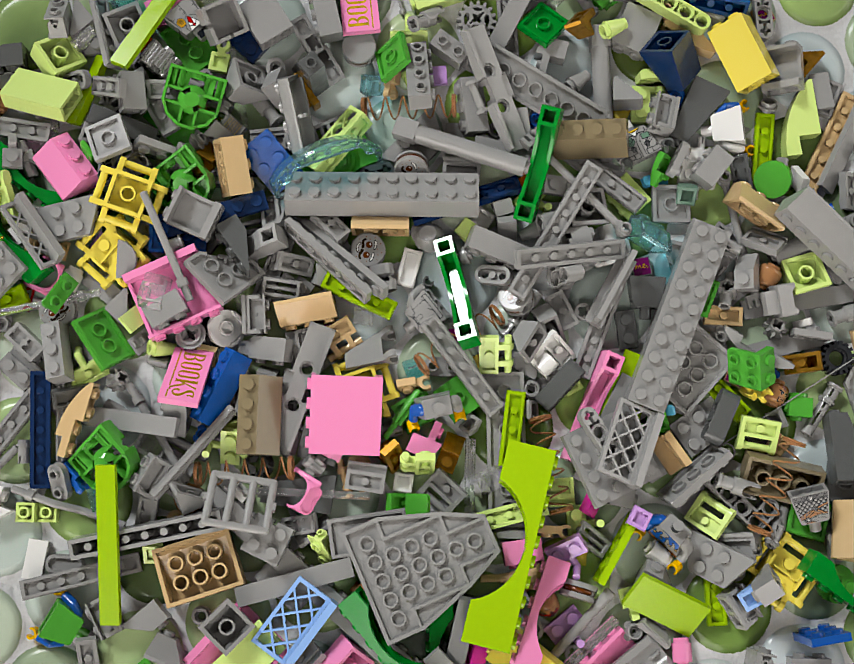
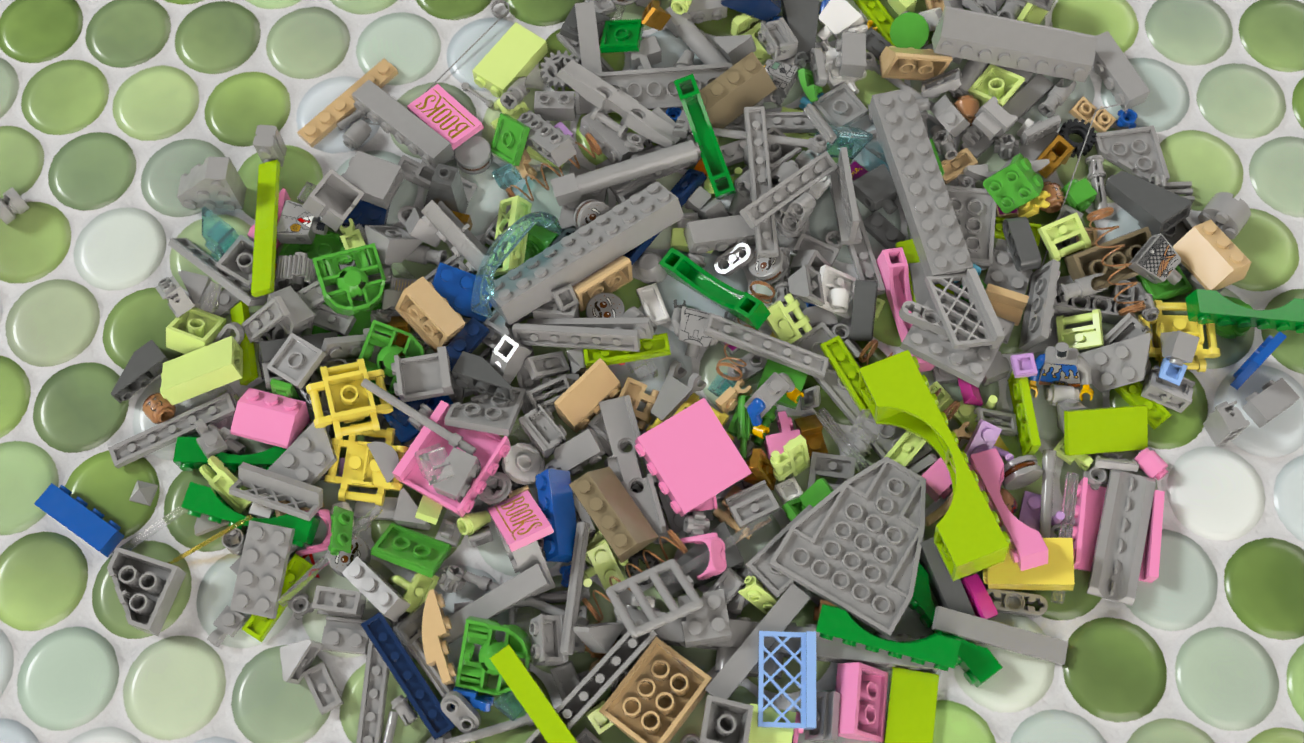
camera: 25 degrees left, 15 degrees down
(340, 222) = (565, 297): none -> light grey slope
(480, 127) = (634, 142): none -> light grey plate
(637, 213) = (820, 123): none -> light grey axle
(686, 193) = (847, 89): sand green slope -> none

